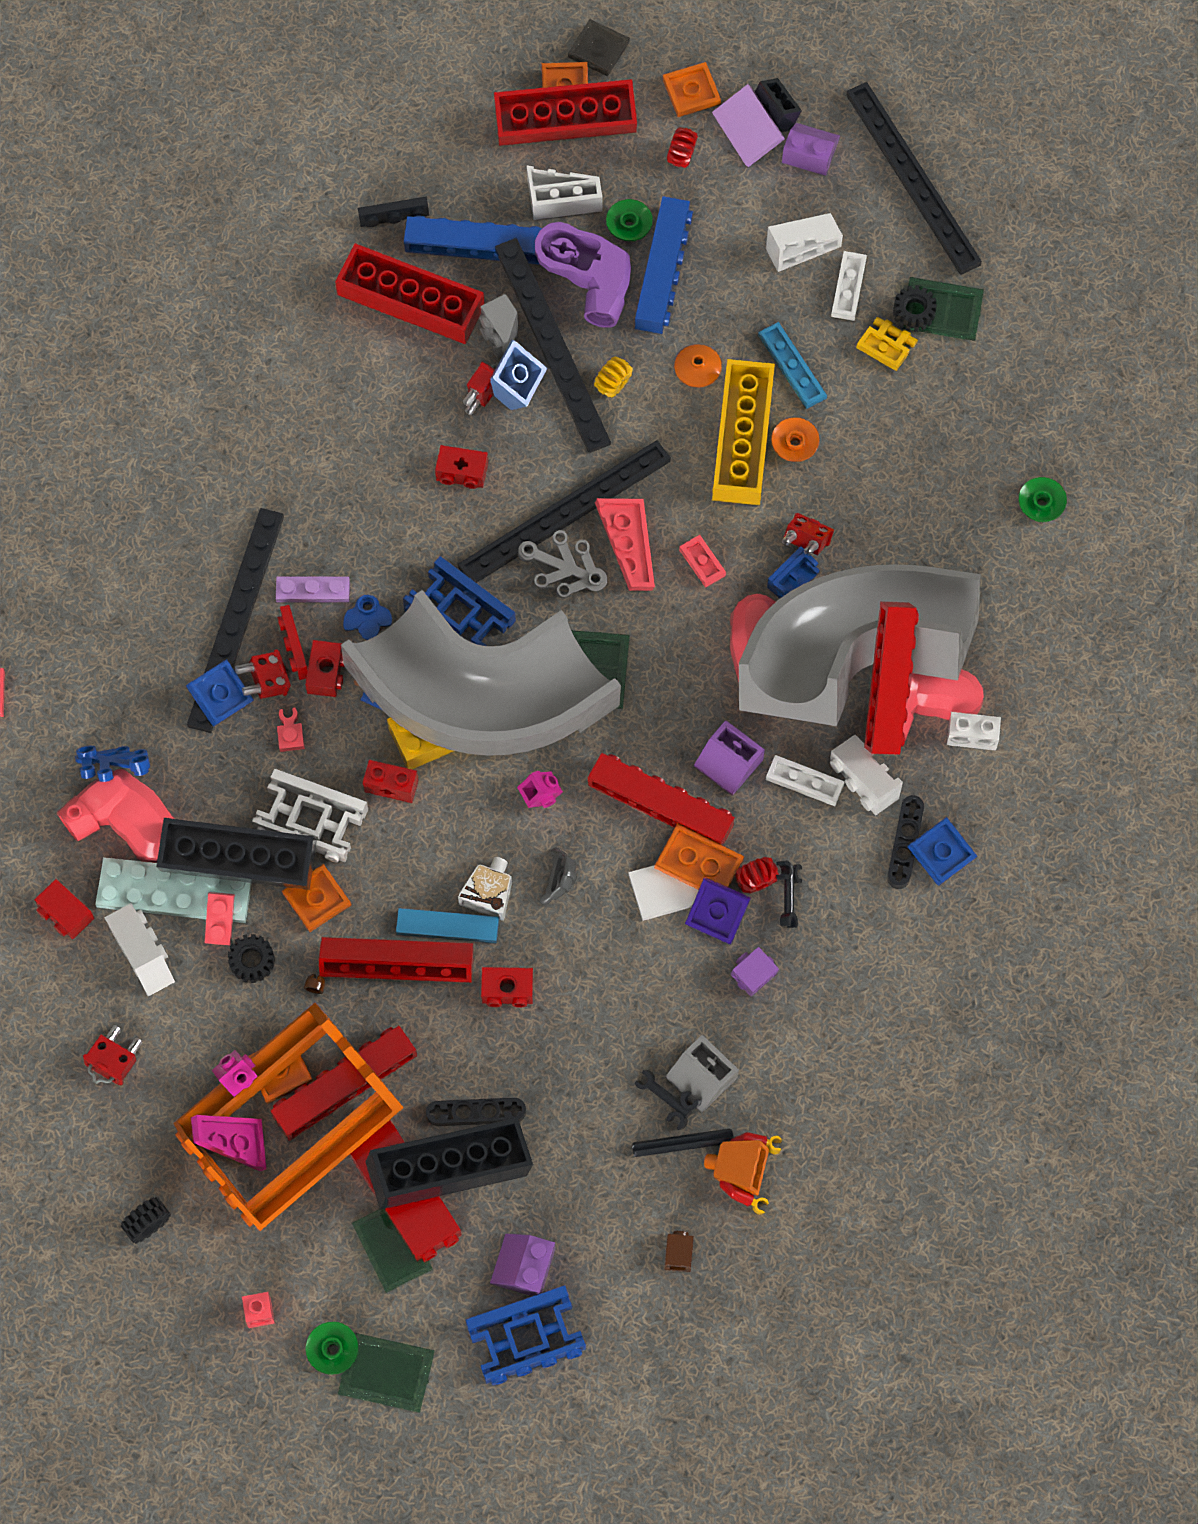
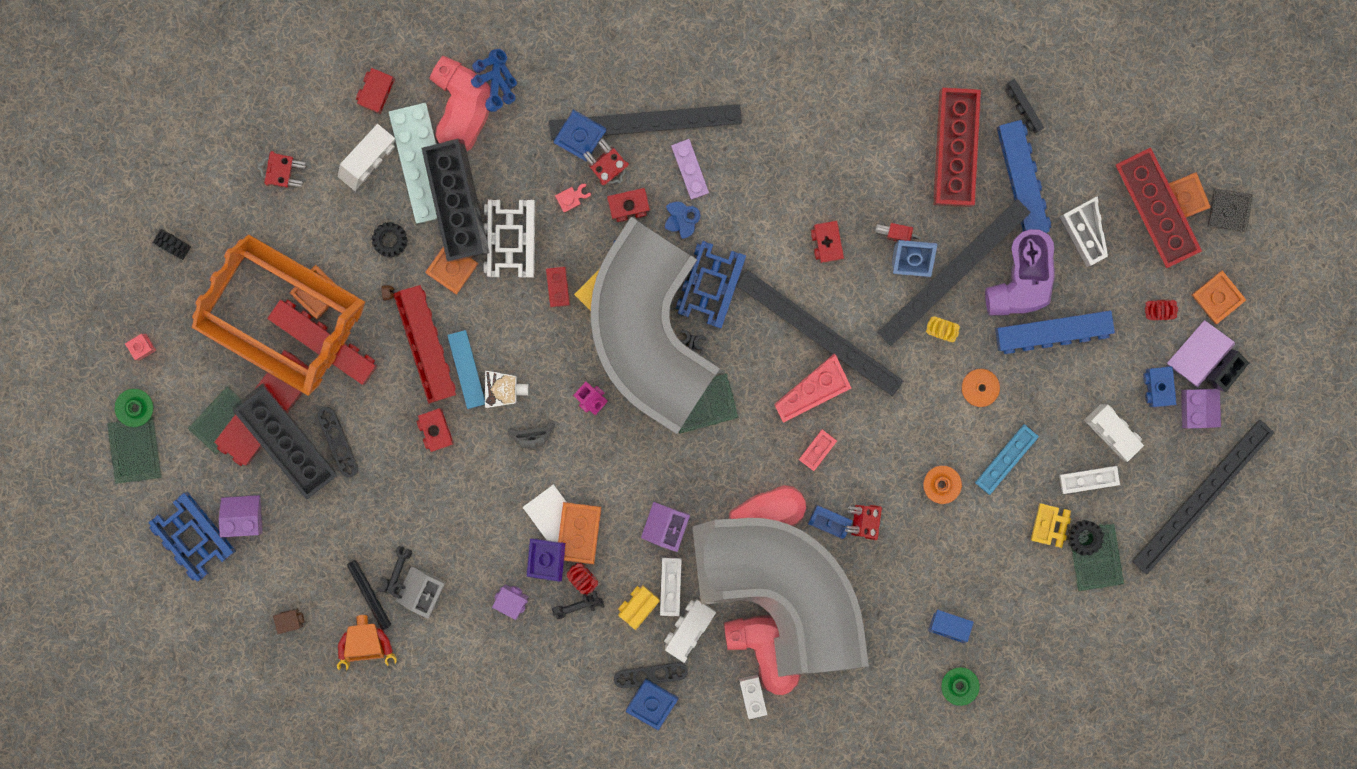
camera: 70 degrees right, 20 degrees up
(219, 918) = (409, 205): coral plate -> none
(231, 1137) = (250, 280): dark pink wing -> none
(235, 1072) = (292, 266): dark pink brick -> none
(292, 642) = (639, 172): red plate -> none
(499, 324) = (953, 229): light grey slope -> none
(565, 567) = (773, 351): light grey plant -> none
(629, 211) = (1093, 289): green dish -> none
(659, 799) = (615, 488): red brick -> none
(743, 432) = (933, 444): yellow brick -> none
(769, 178) = (1160, 386): none -> blue brick
(816, 824) = (638, 607): none -> yellow brick
(890, 677) = (755, 630): red brick -> none
(967, 486) = (950, 626): none -> blue hinge

